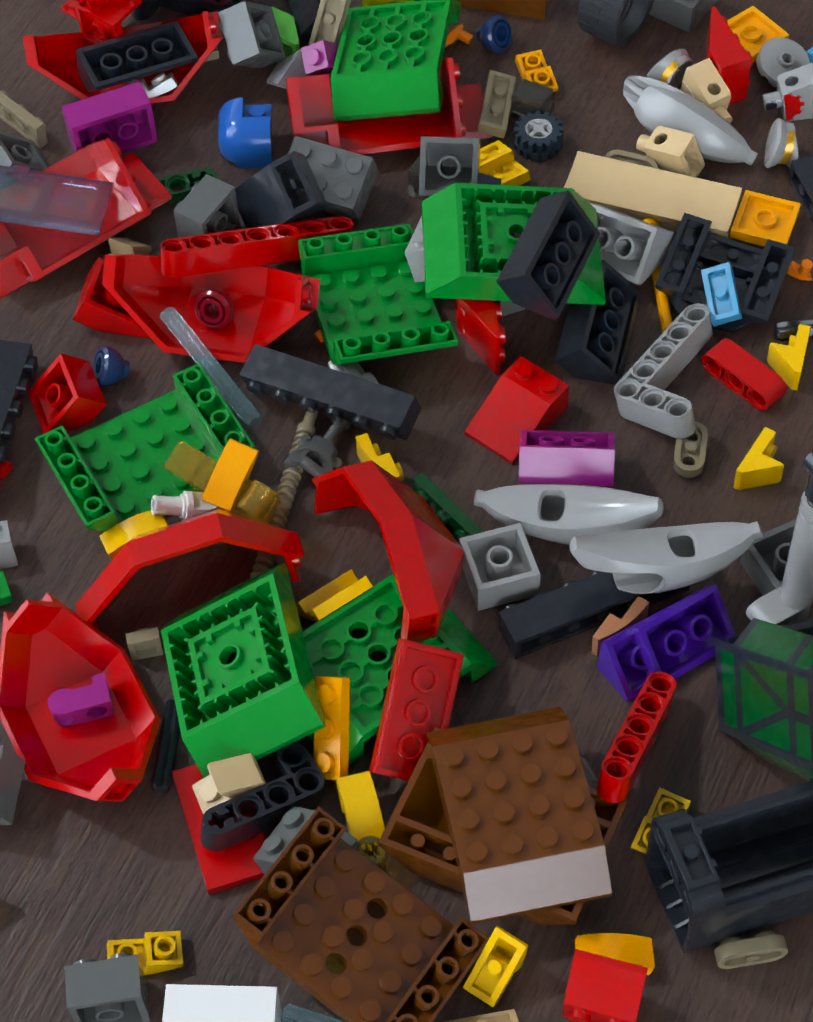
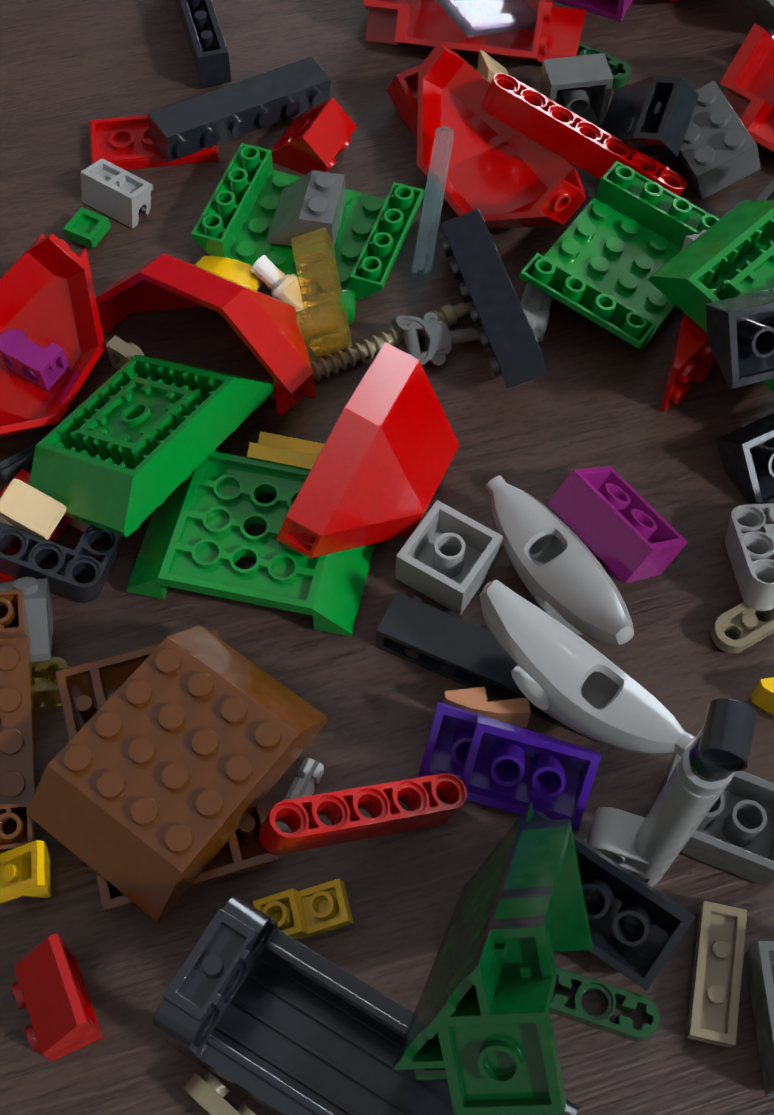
camera: 45 degrees right, 5 degrees up
(109, 366) = (368, 144): dark blue brick -> none
(140, 442) = (308, 205): none -> dark grey slope
(214, 309) = (496, 165): dark red brick -> none
(230, 474) = (325, 280): light orange slope -> none
(246, 134) = (692, 54): blue brick -> none
(332, 741) = (149, 548): light orange plate -> none
(360, 805) = (99, 631): yellow slope -> none
(367, 451) = (467, 386): yellow slope -> none
(415, 703) = (227, 593): red tile -> none
(448, 512) = (466, 475): dark green plate -> none
(520, 400) = (644, 446): red slope -> none
(618, 946) = (119, 975): light orange slope -> none

